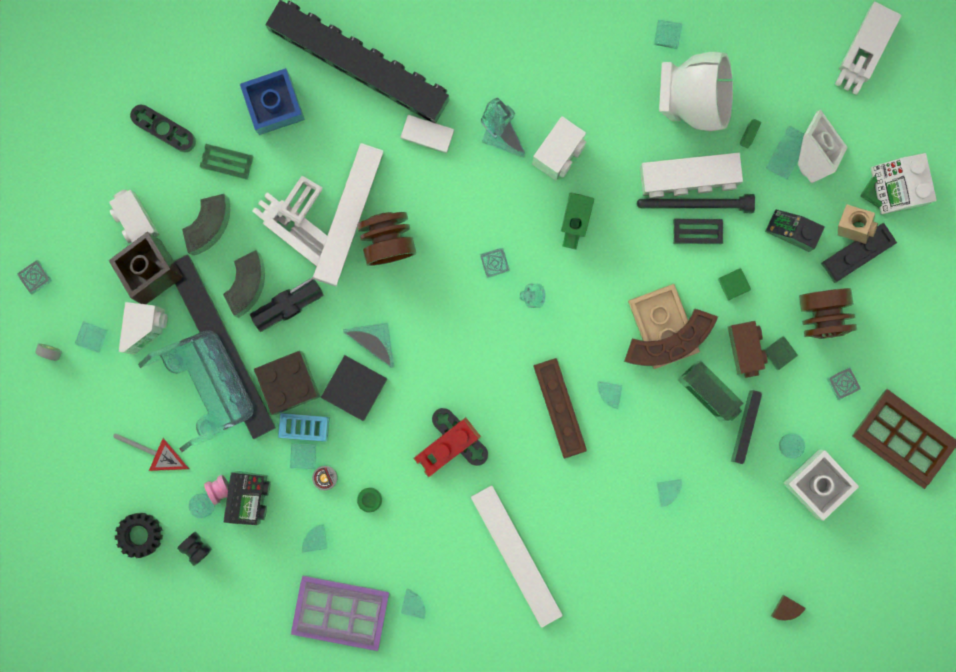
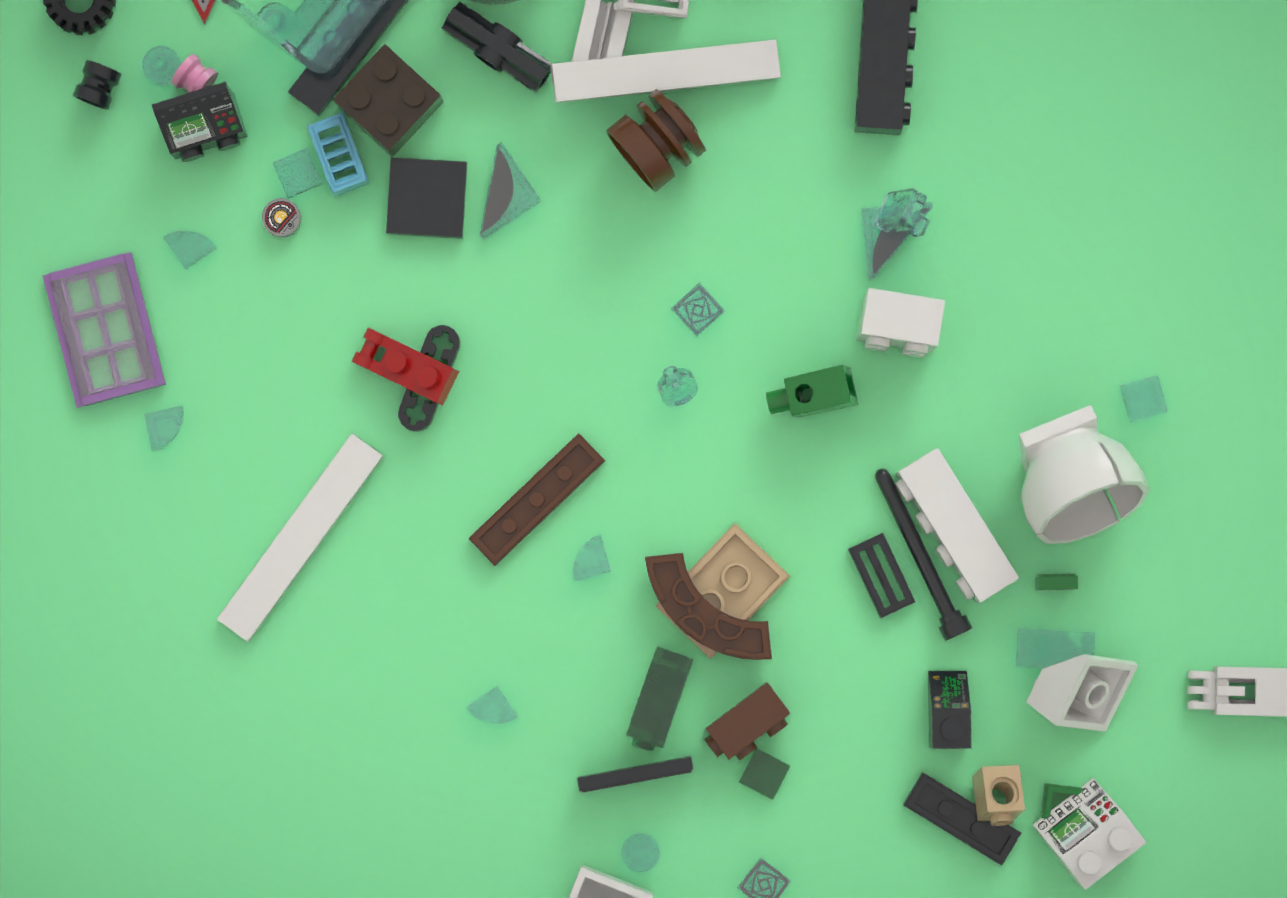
camera: 60 degrees right, 0 degrees up
(369, 499) = (281, 295): green tile -> none
(427, 134) = (834, 127): white tile -> none
(734, 284) = (830, 662): green tile -> none
(828, 313) = (850, 811): reddish brown wheel -> none

